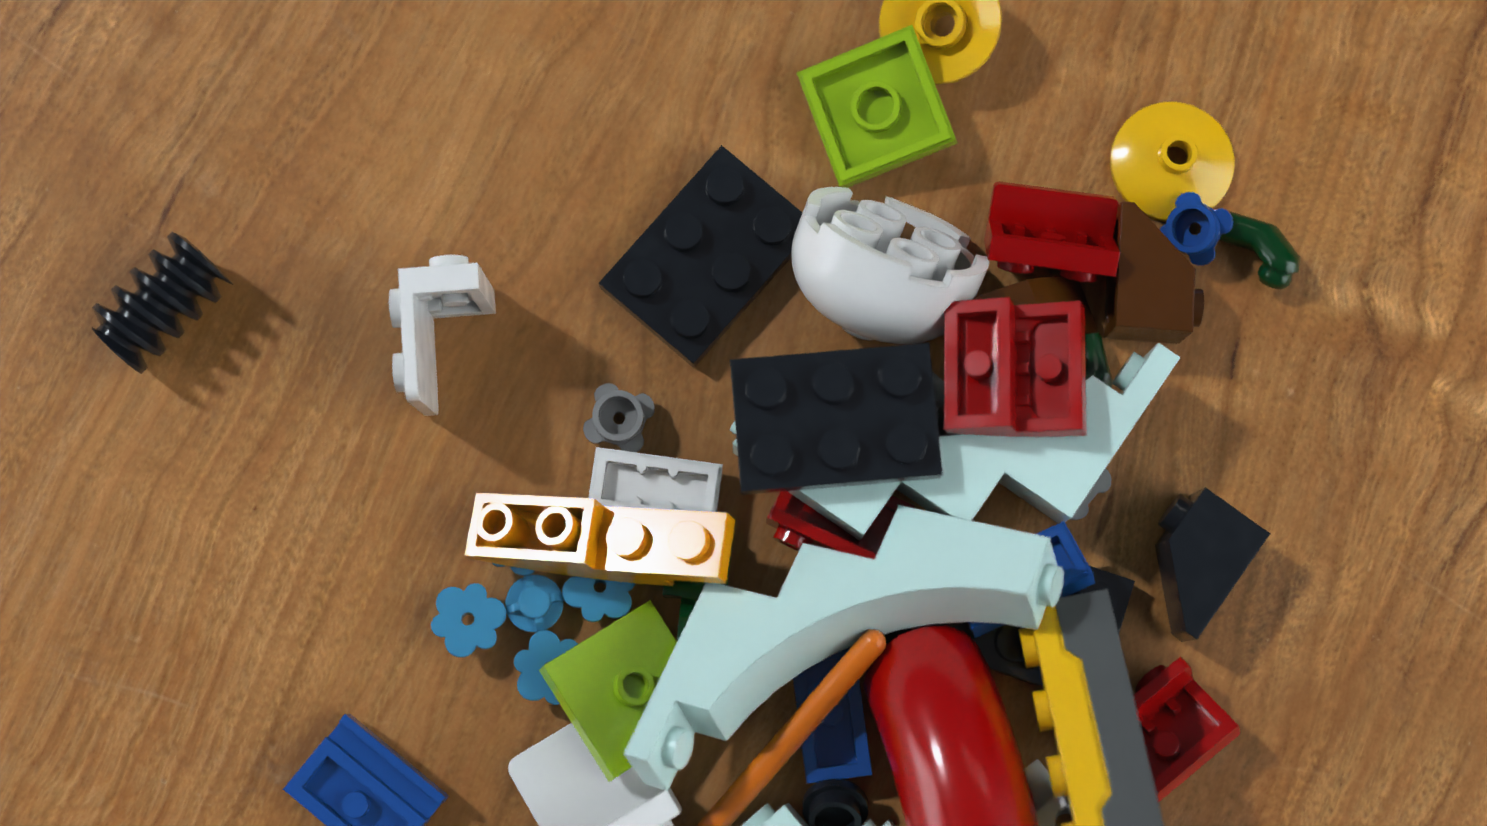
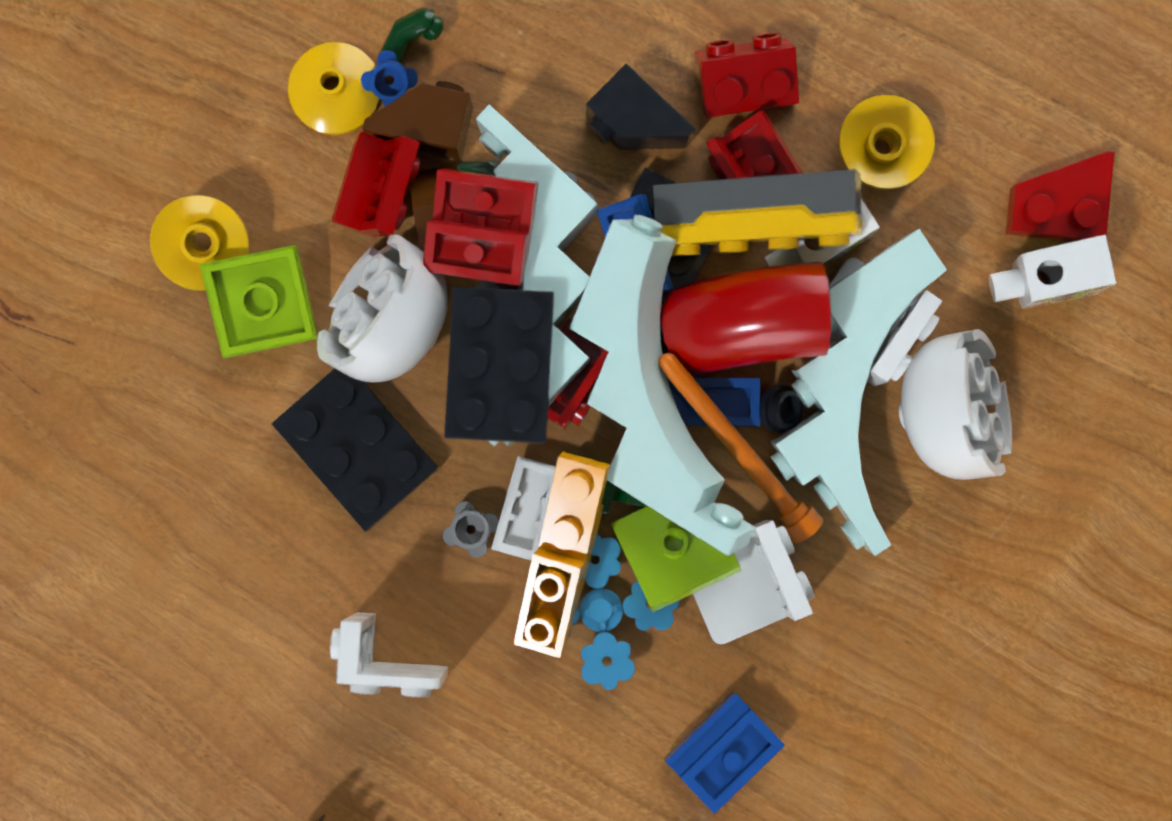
camera: 80 degrees left, 5 degrees up
(1286, 705) = (748, 75): none -> red bracket

